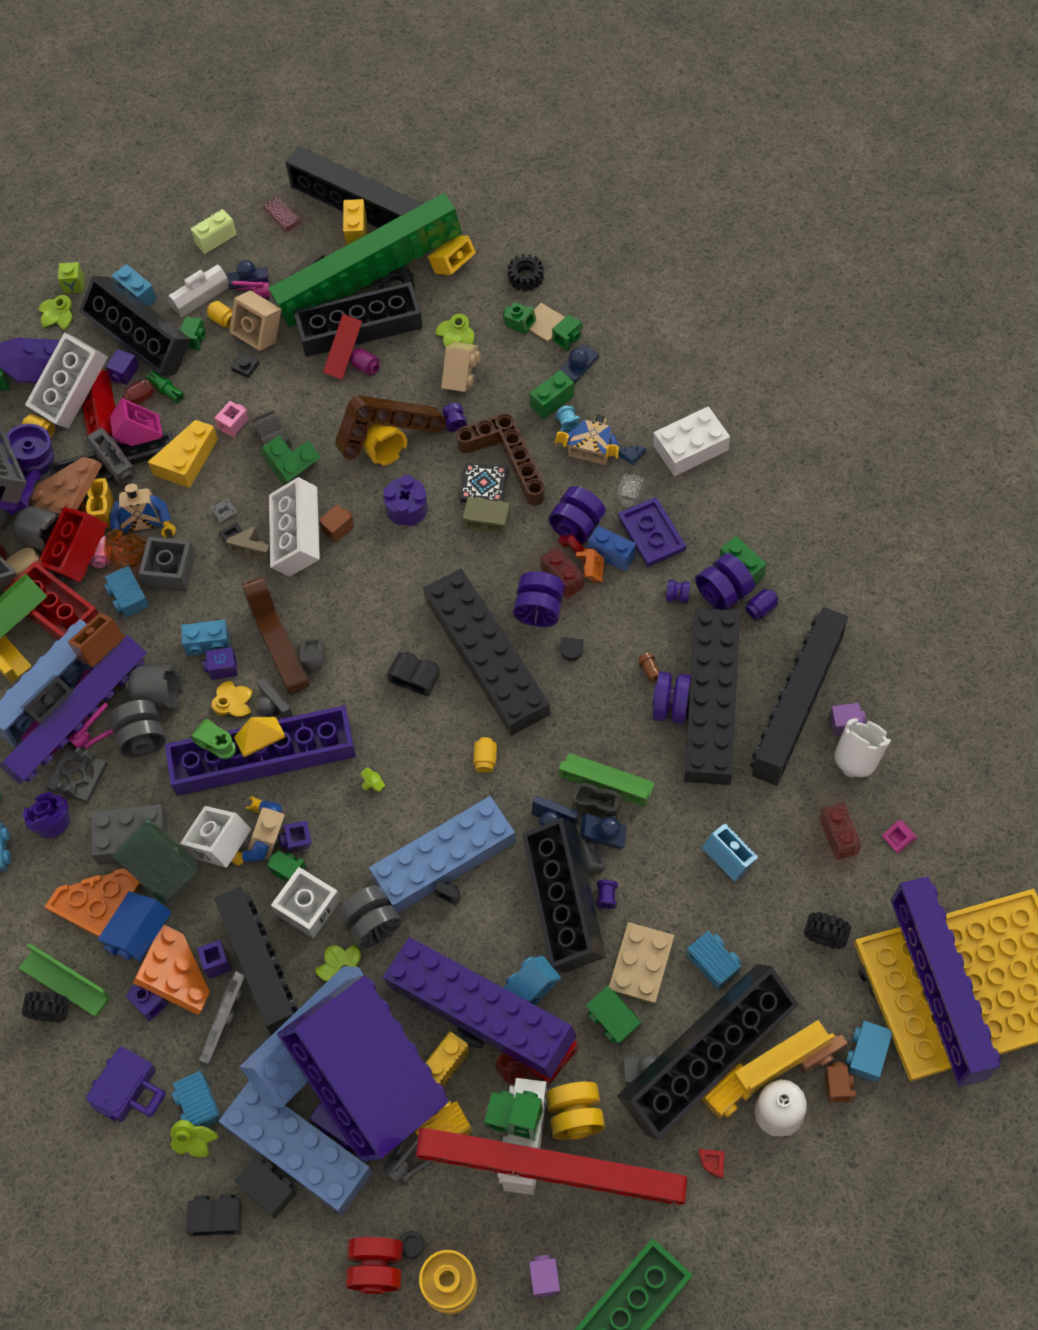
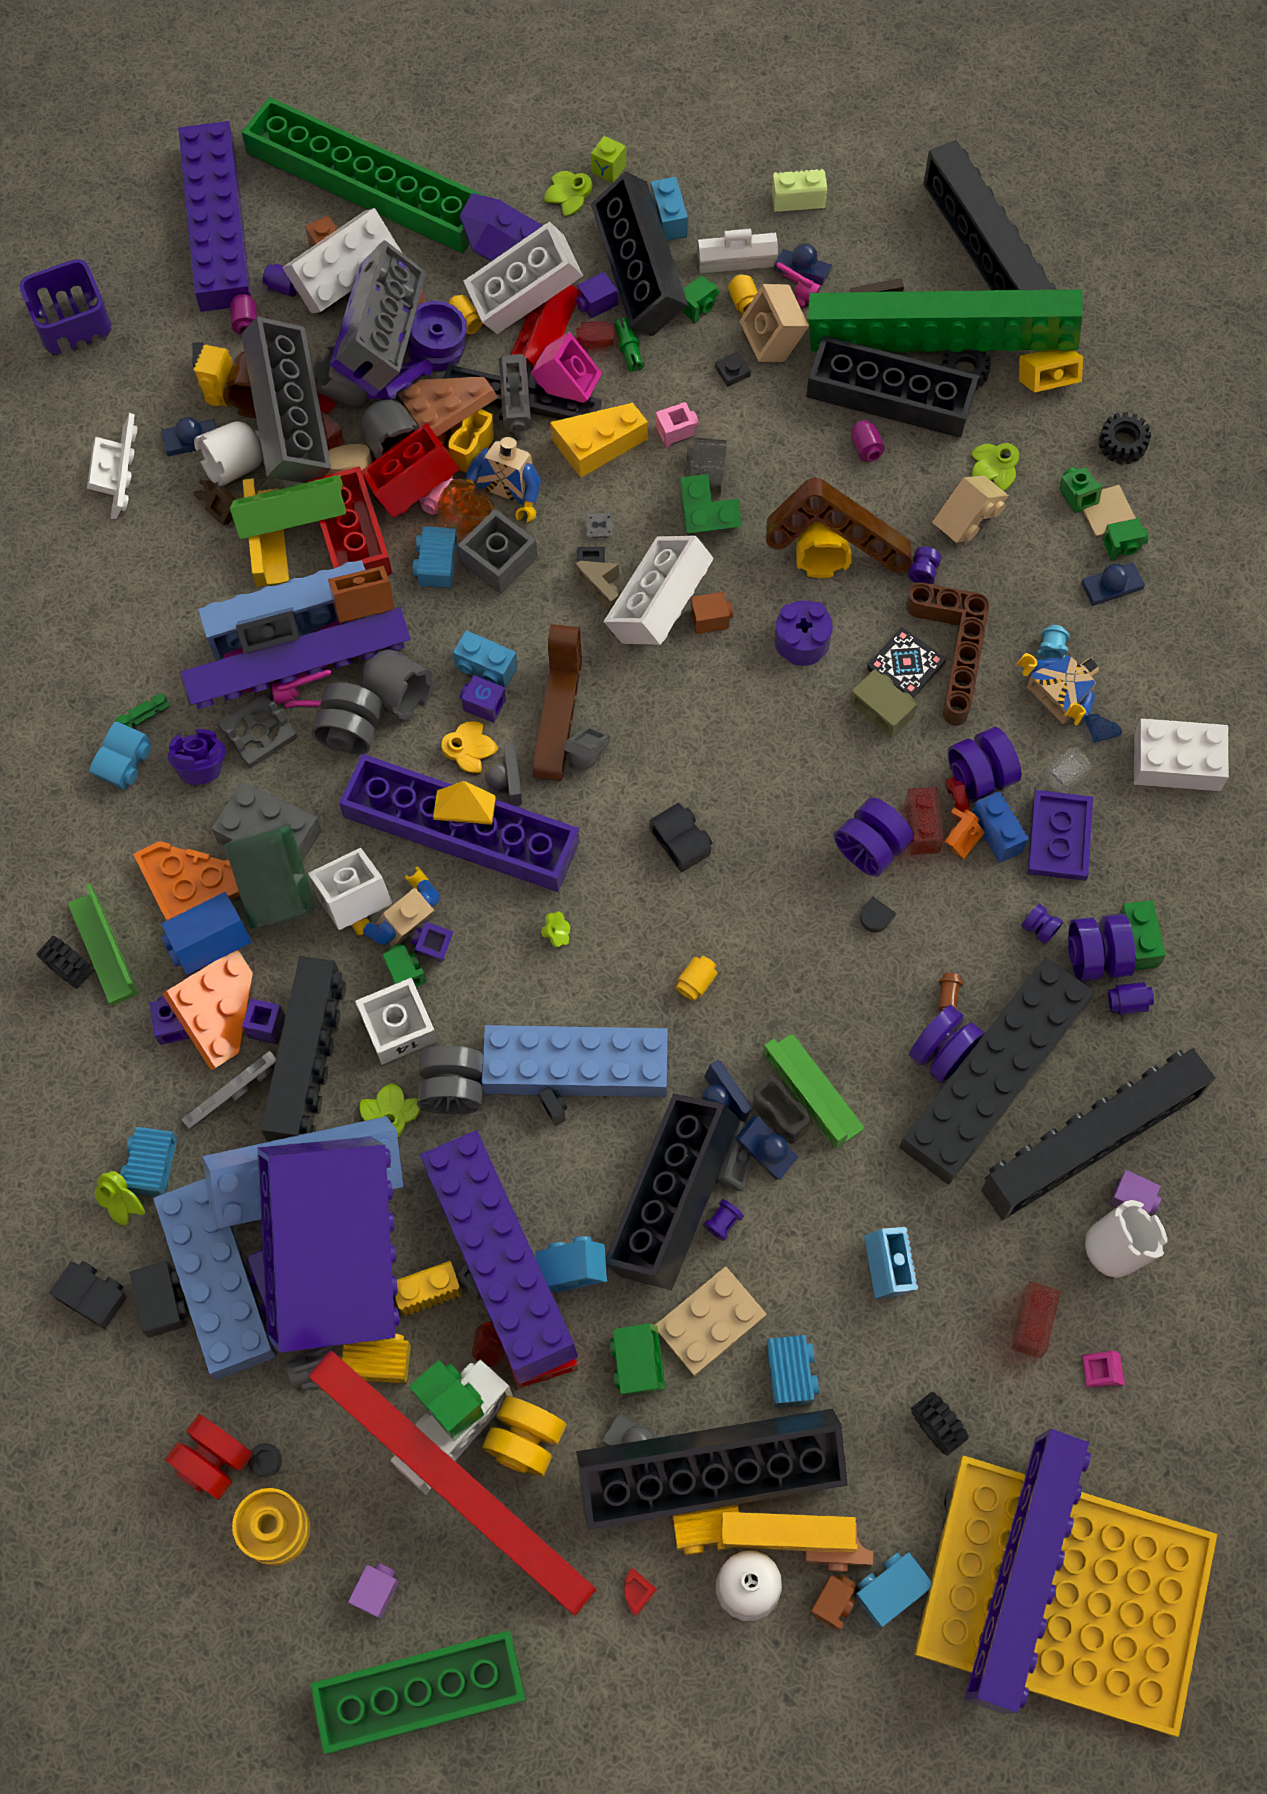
camera: 30 degrees right, 5 degrees up
(122, 1085) = (88, 1094): dark purple piece -> none
(214, 739) = (413, 779): bright green piece -> none
(282, 214) = (891, 211): clear pink tile -> none
(342, 346) = (850, 409): red tile -> none
(354, 220) = (962, 266): yellow brick -> none
(486, 652) = (776, 861): black brick -> none
(551, 394) = (1054, 603): green brick -> none

